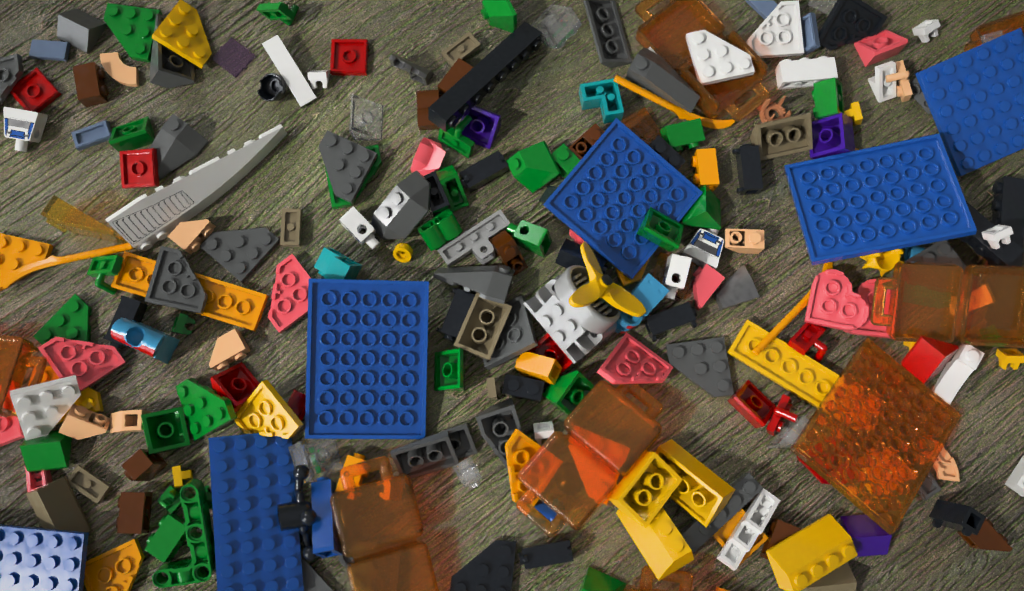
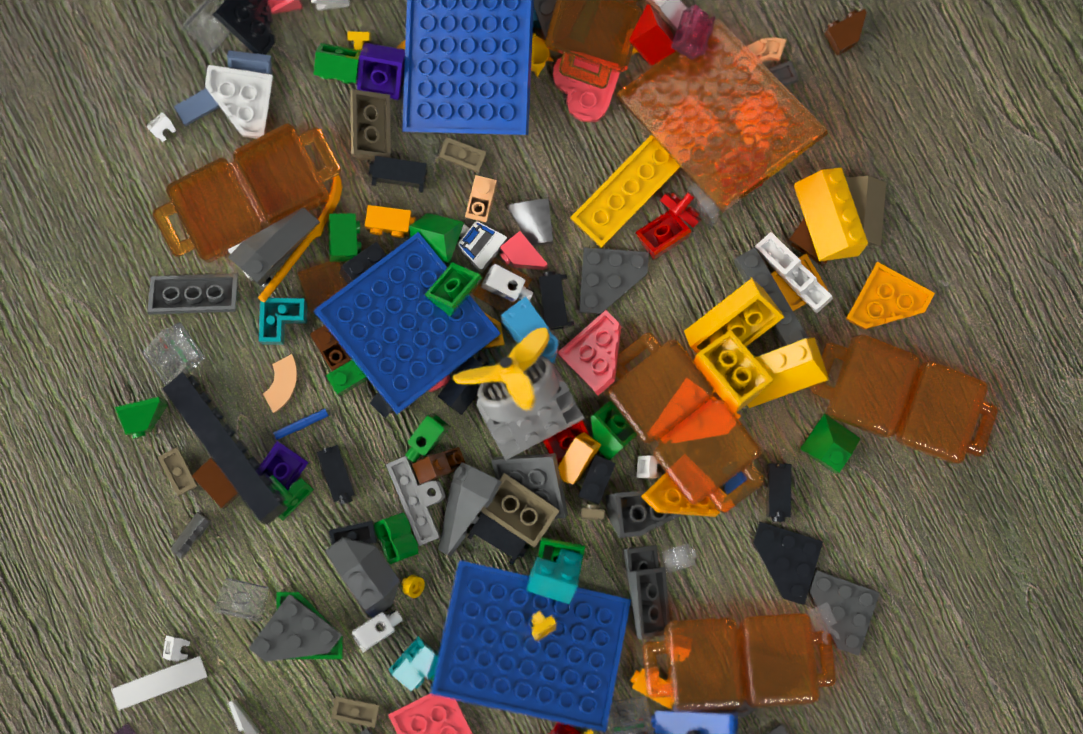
camera: 80 degrees left, 5 degrees up
(272, 87) = (177, 706): black hair -> none
(278, 11) = (83, 678): green plate -> none
(349, 57) = (155, 608): red tile -> none
(384, 363) = (542, 626): none -> yellow tile
(424, 101) = (243, 524): reddish brown brick -> none
(428, 157) = (305, 535): coral slope -> none
(428, 368) = (556, 579): none -> teal brick
(452, 187) = (347, 514): green slope -> none
(516, 132) = (300, 424): none -> blue piece
(534, 166) = (345, 414): green slope -> none
(550, 116) = (283, 384): none -> light nougat tile
(717, 59) = (262, 177): white plate -> none
(767, 106) = (329, 134): nougat piece -> none
(777, 218) = (462, 155): none -> dark tan plate
(786, 320) = (562, 148): light orange piece -> none
(804, 72) = (296, 78): white brick -> none
(808, 337) = (604, 158): red plate -> none
(834, 303) = (572, 119): coral plate -> none
(866, 535) = (825, 154): dark purple slope -> none
(943, 393) = (693, 32): none -> clear pink hinge
(957, 517) = (822, 56): black brick -> none

